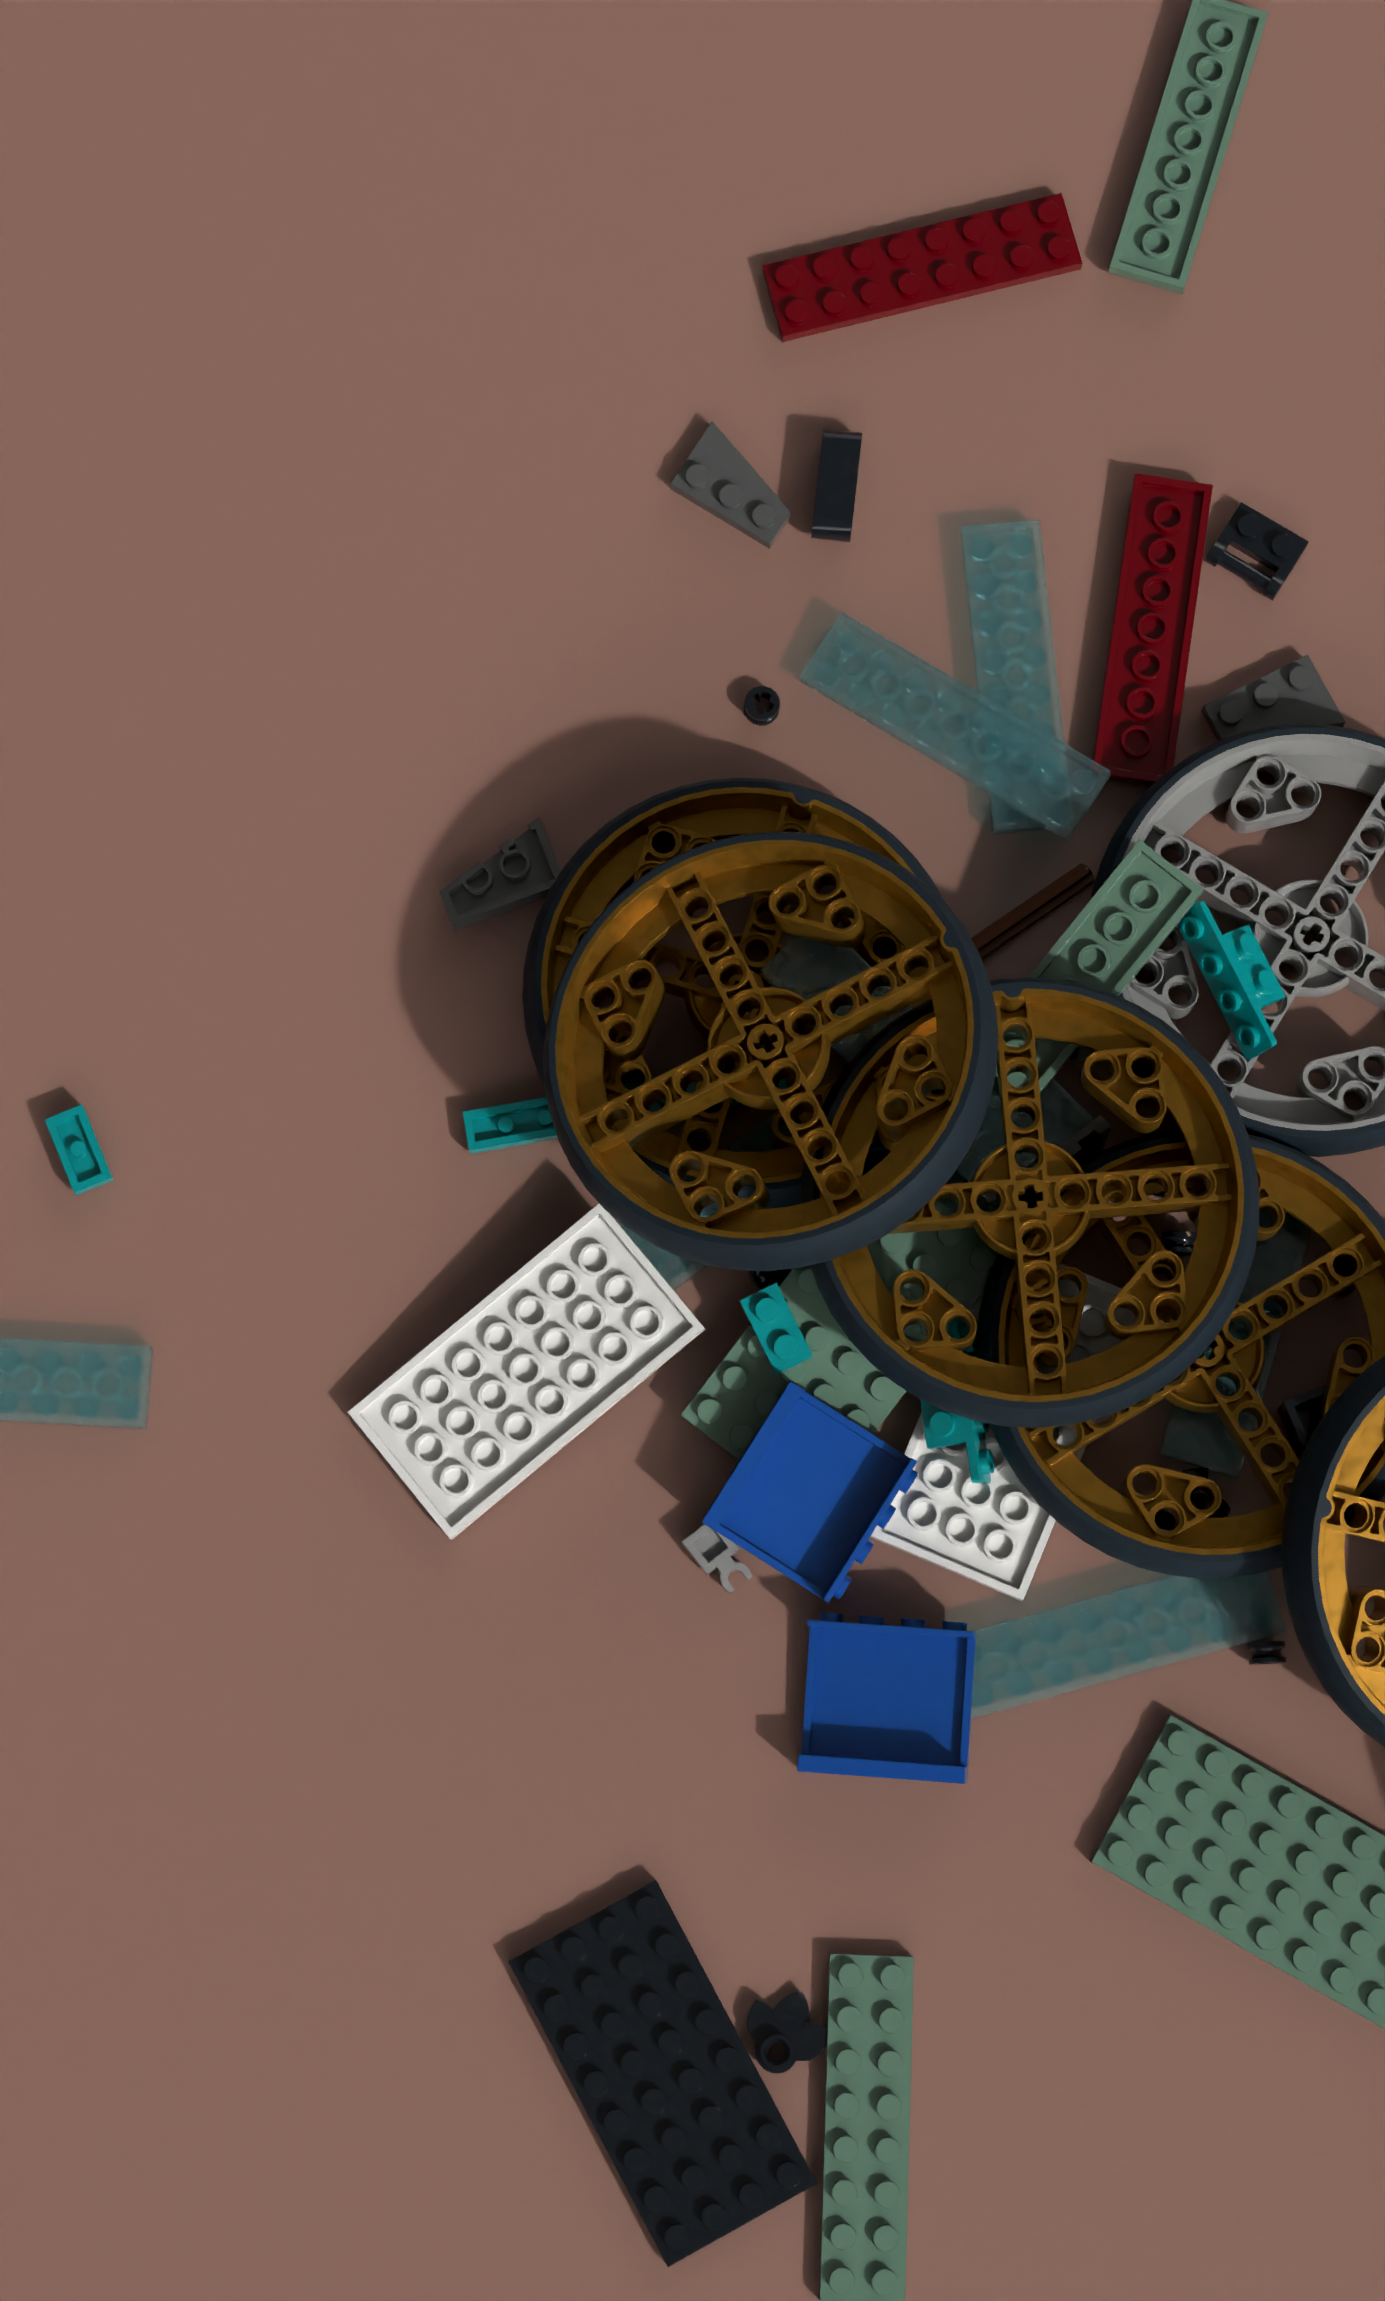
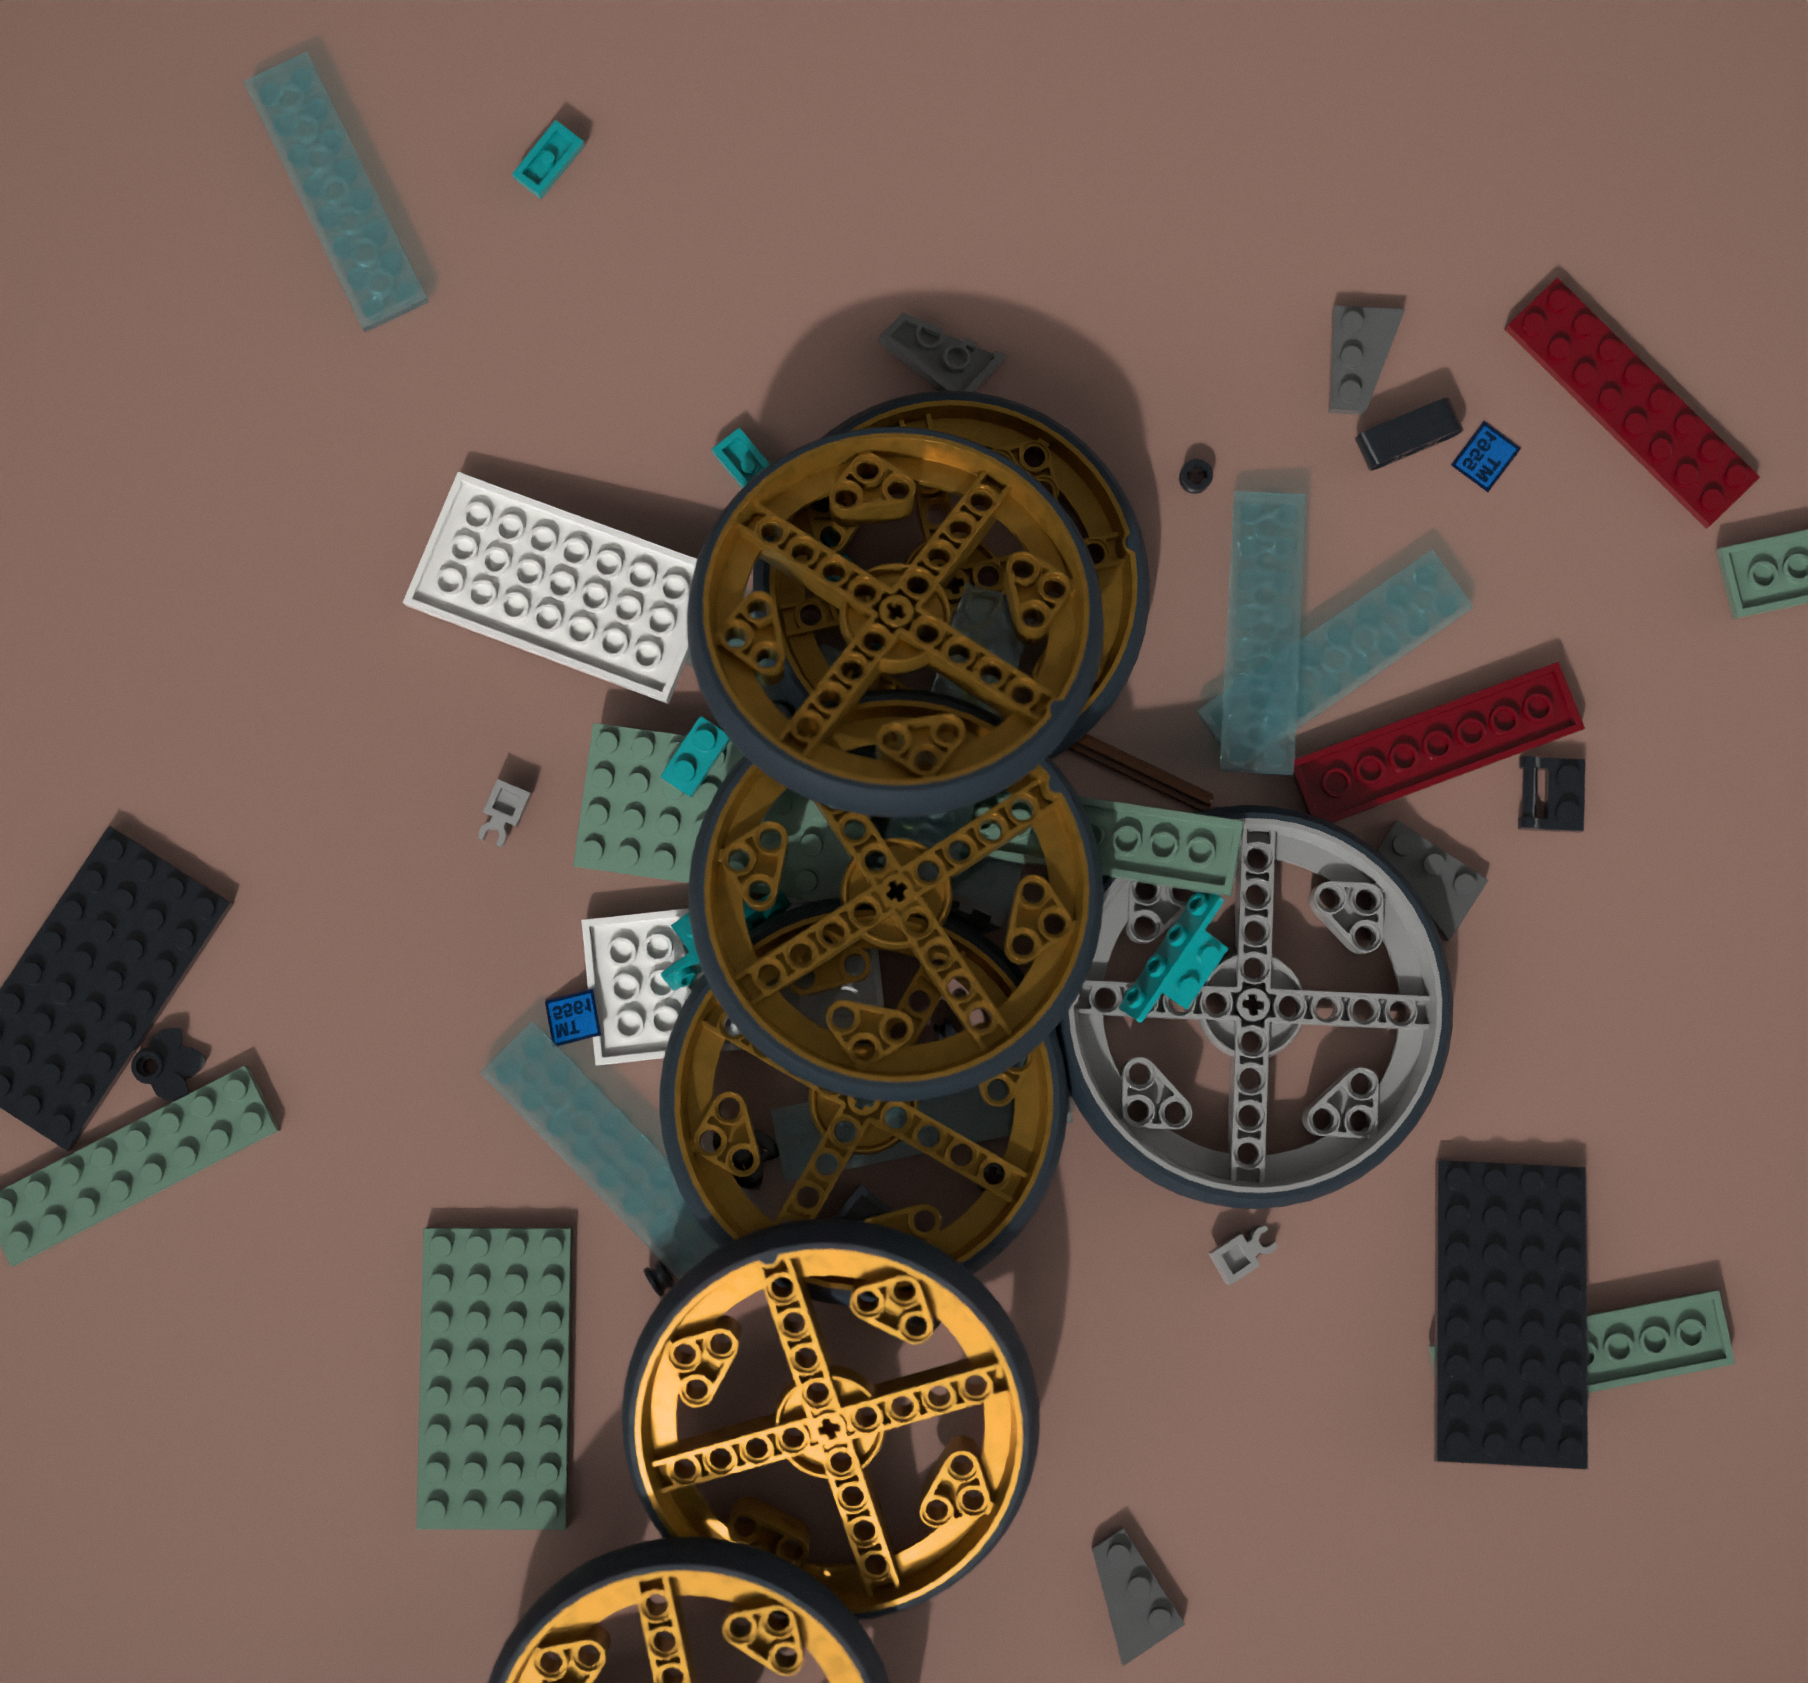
camera: 60 degrees right, 5 degrees up
(810, 1493) = (586, 854): blue panel -> none
(888, 1699) = (459, 1004): blue panel -> none
(896, 428) = (1485, 456): none -> clear blue sticker
(962, 1596) = (573, 1017): none -> clear blue sticker

